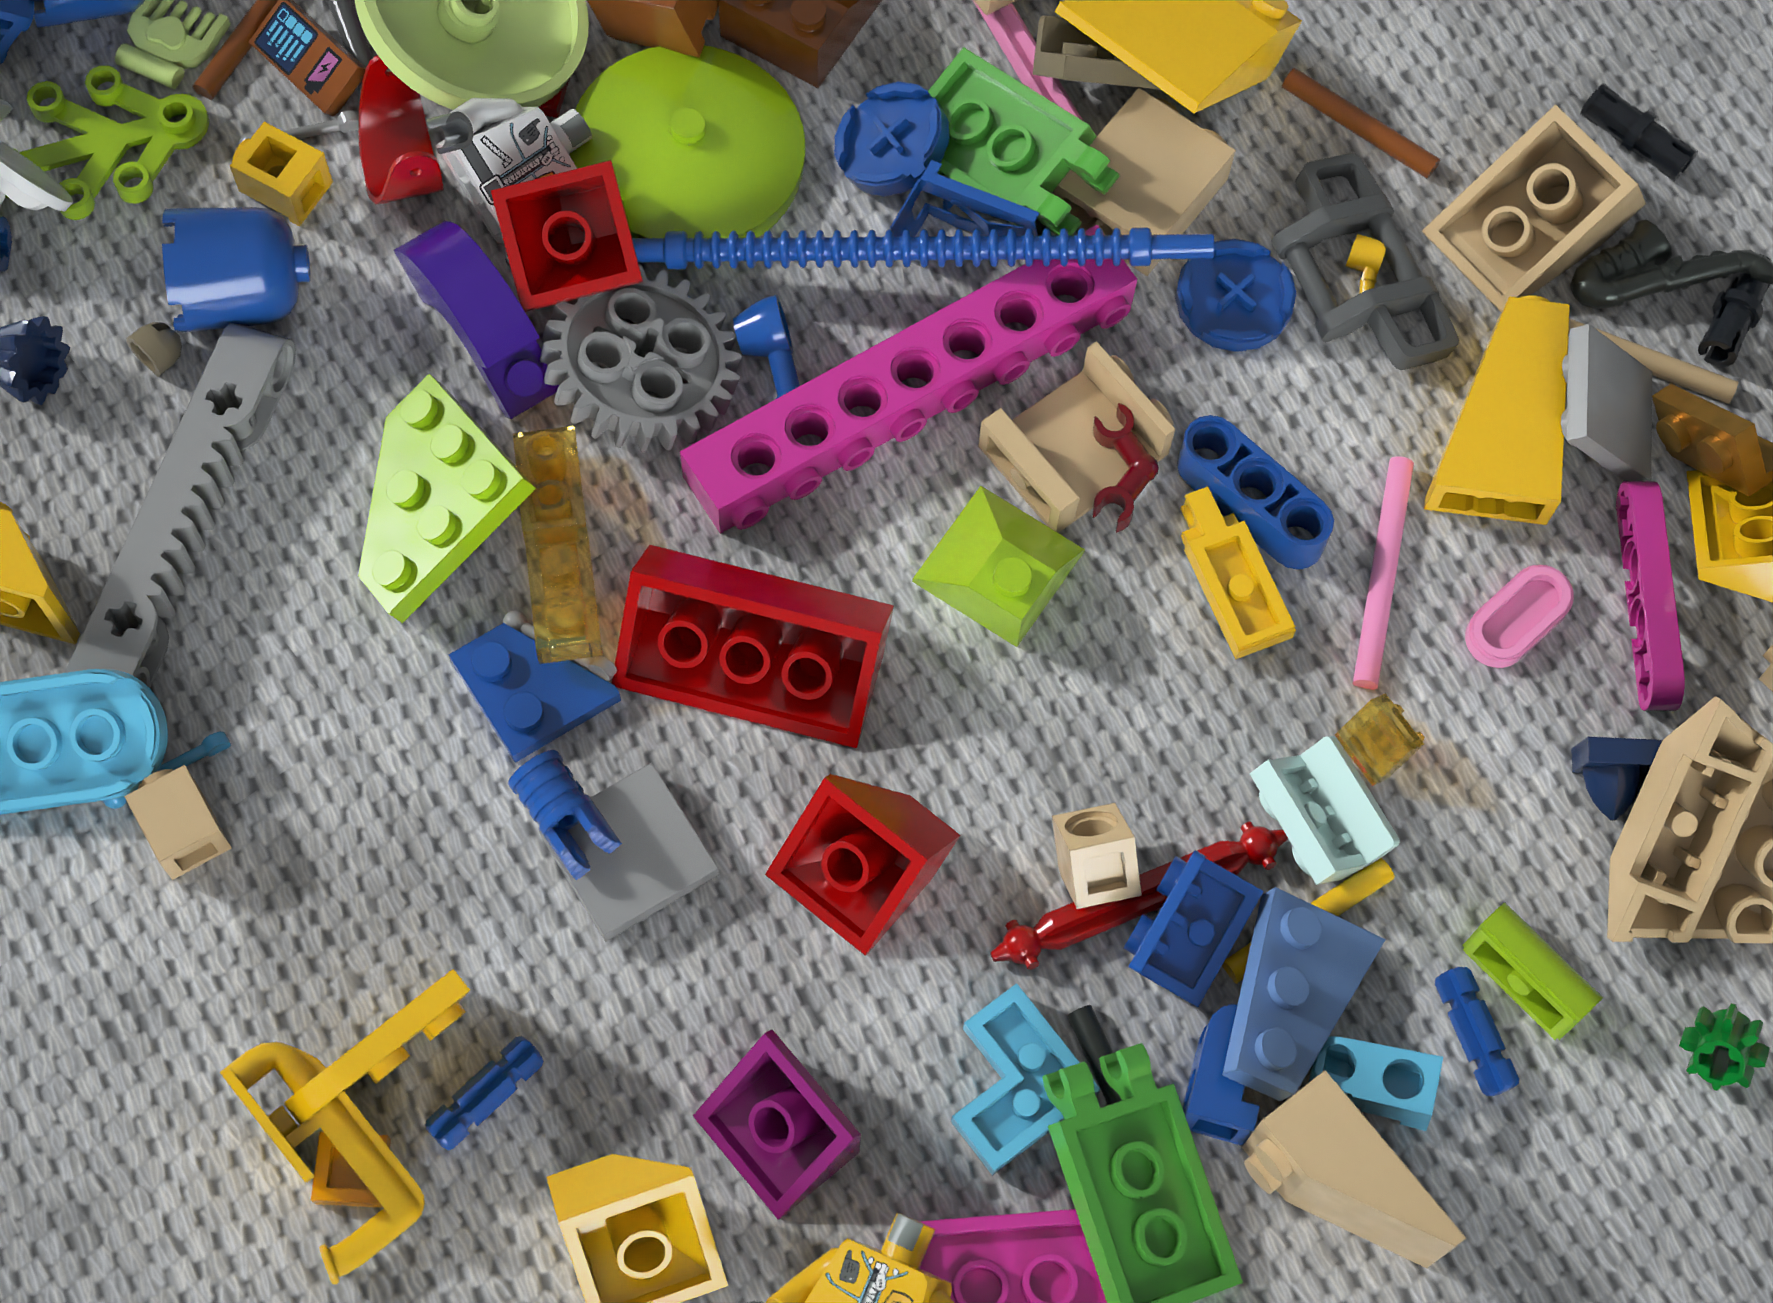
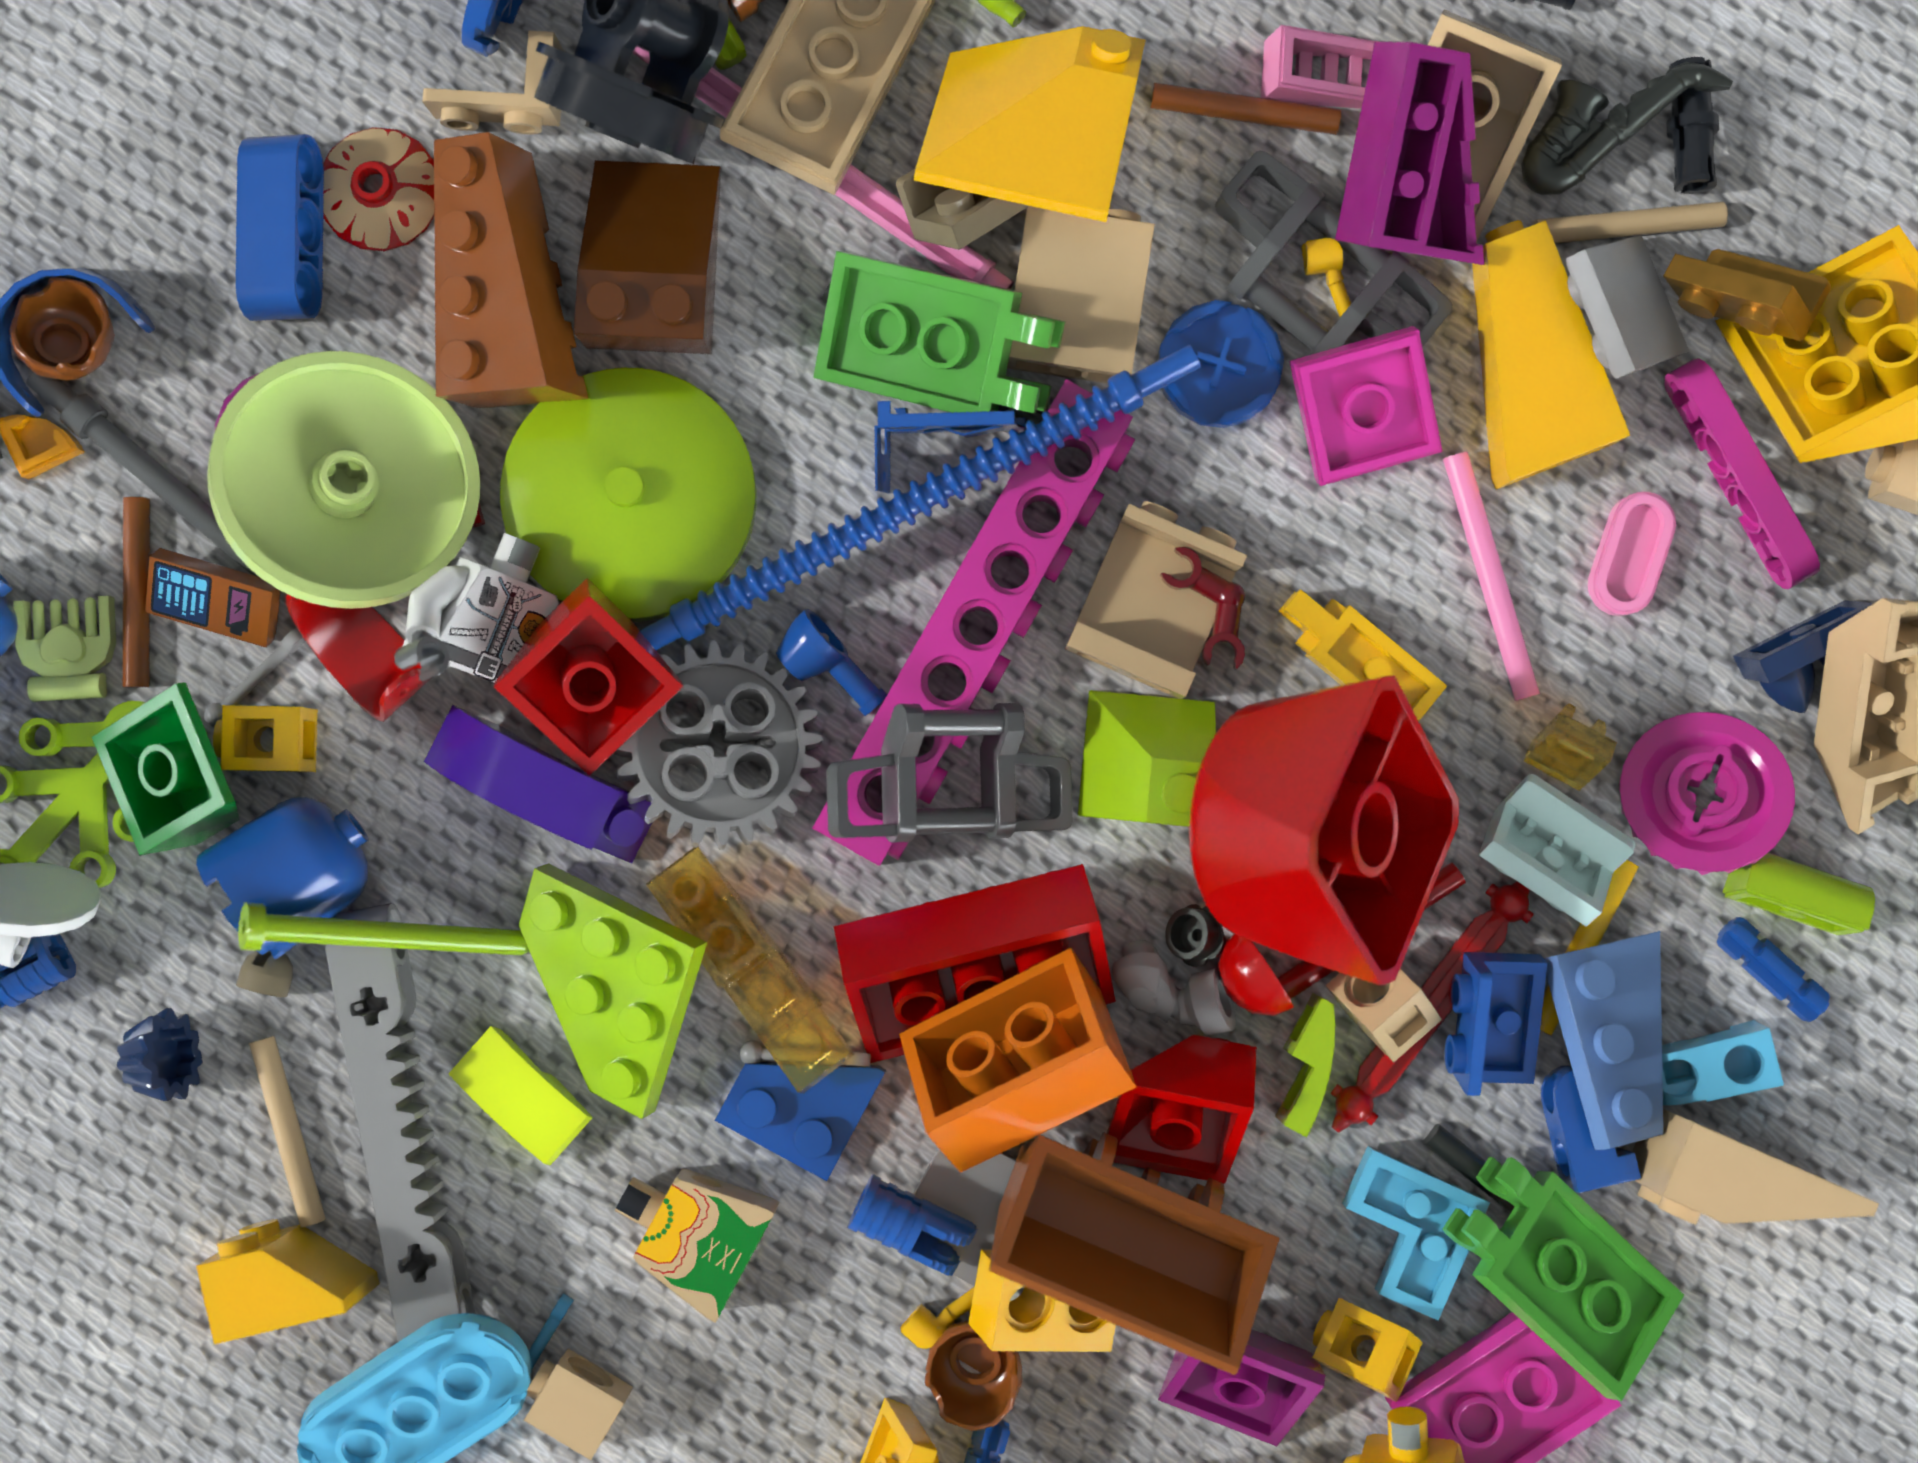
camera: 25 degrees left, 20 degrees up
(85, 480) = (287, 1131): none -> tan bar
(186, 143) = (166, 774): none -> green slope
(272, 342) = (257, 927): none -> lime bar
(298, 549) = (520, 1096): none -> neon yellow slope
(375, 738) = (697, 1235): none -> torso
(522, 935) = (925, 1328): none -> yellow hand
(560, 975) = (967, 1397): none -> dark orange hair
(637, 956) = (1032, 1318): none -> yellow brick
(739, 717) = (1015, 1061): none -> orange brick
(753, 921) = (1132, 1249): none -> dark orange piece
(870, 490) = (909, 723): none -> dark grey bar
(891, 138) = (818, 382): blue tile -> none
(914, 1158) = (1391, 1359): none -> yellow brick
(935, 780) = (1147, 985): none -> light grey arm
(959, 721) = (1182, 935): none -> pearl dark grey plate
(988, 790) = (1256, 987): none -> red piece
(1009, 868) = (1314, 1044): none -> lime slope
(1123, 640) = (1323, 826): none -> red piece
(1247, 465) = (1373, 563): blue beam -> none
(1342, 377) = (1366, 405): none -> dark pink plate
(1440, 100) = (1301, 88): none -> bright pink slope
(1469, 799) = (1750, 779): none -> dark pink gear
(1476, 198) = (1412, 156): none -> magenta wedge

